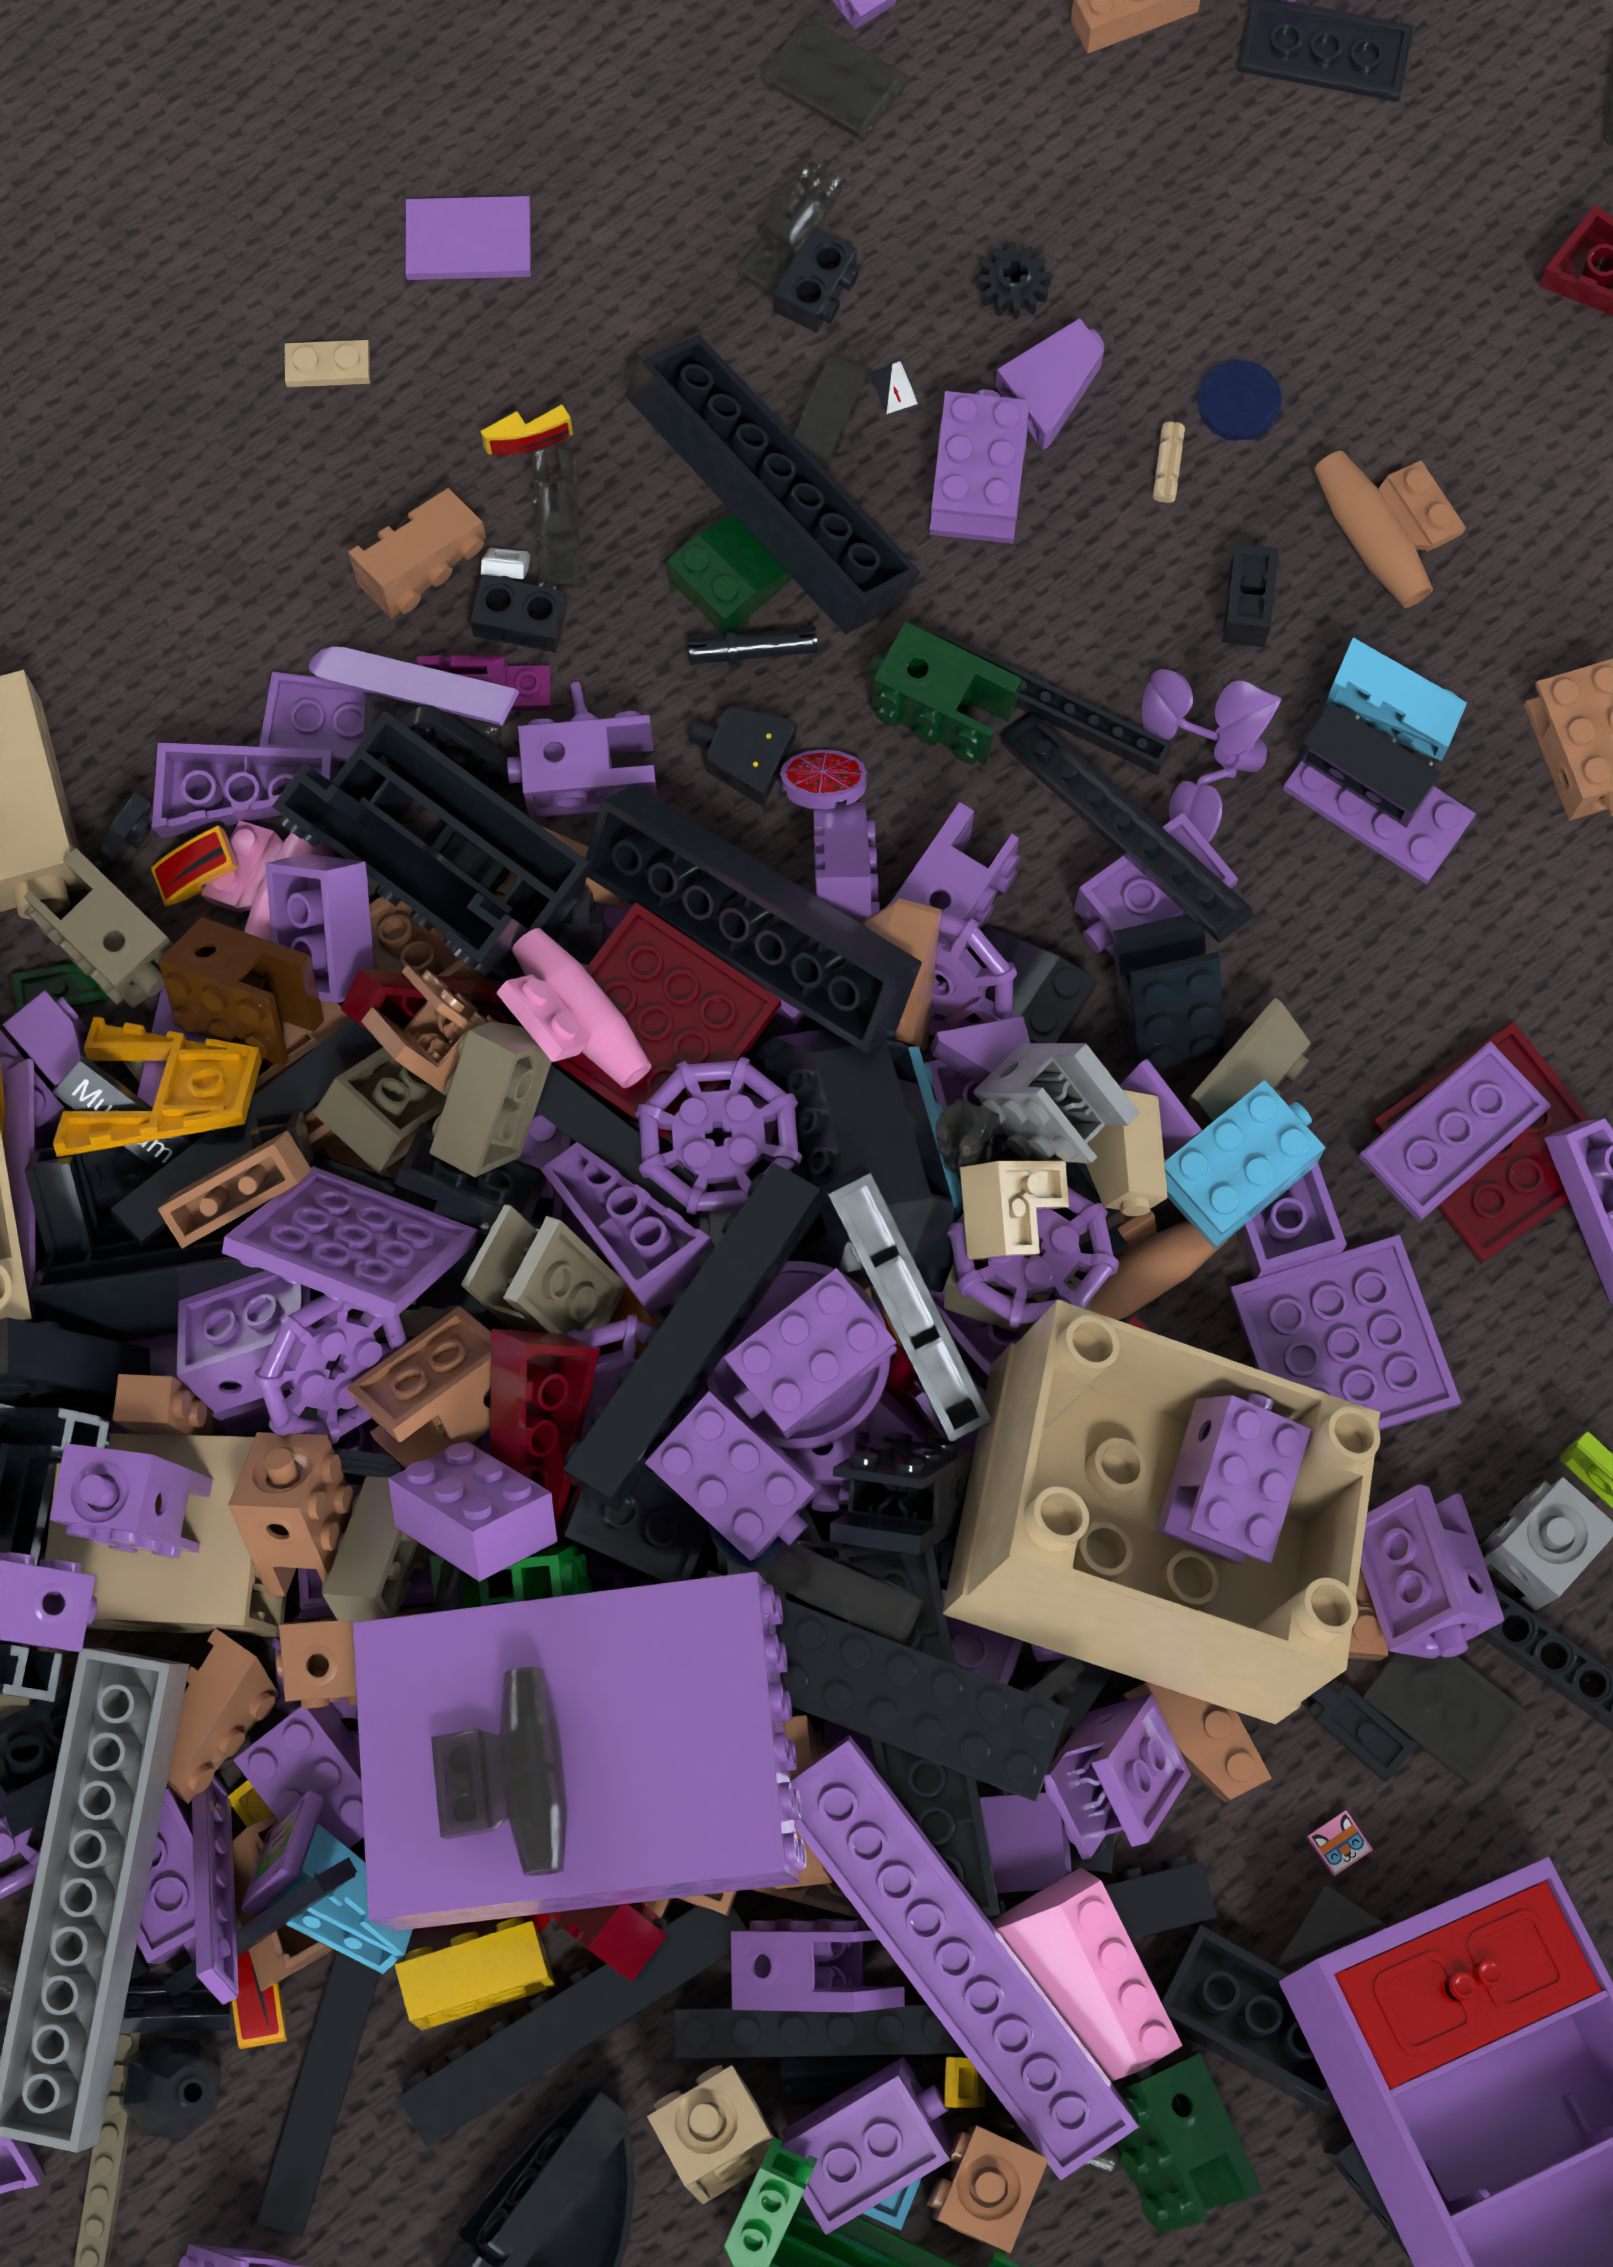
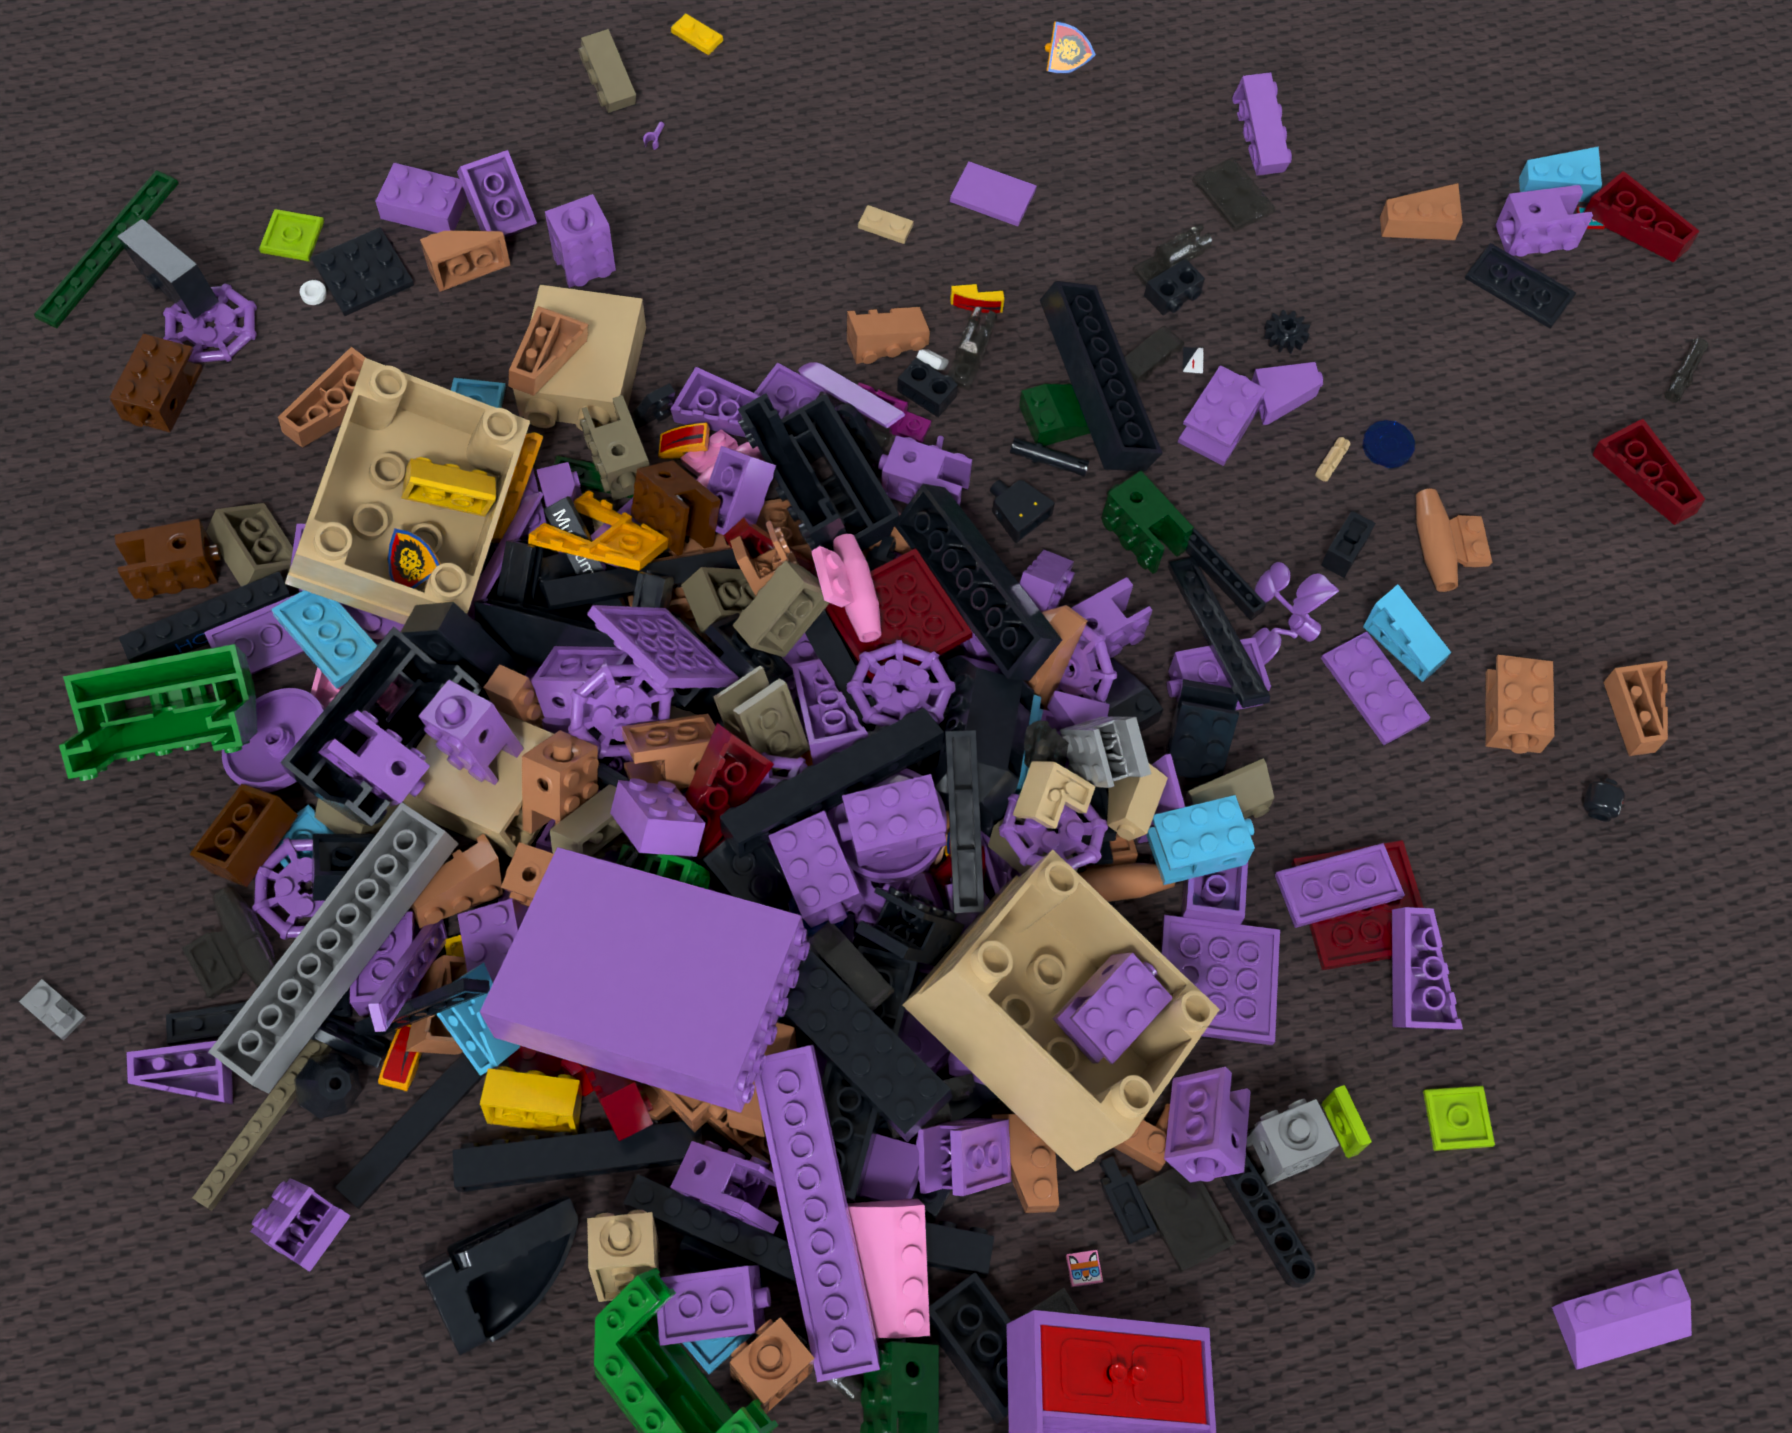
camera: 20 degrees right, 10 degrees down
(234, 1189) = (627, 592): nougat brick -> none
(283, 1853) = (460, 969): medium lavender tile -> none
(508, 1776) = (599, 963): clear smoke plate -> none
(823, 778) = (1055, 538): tile -> none
(963, 2084) = (786, 1300): yellow slope -> none
(1369, 764) = (1377, 661): black brick -> none

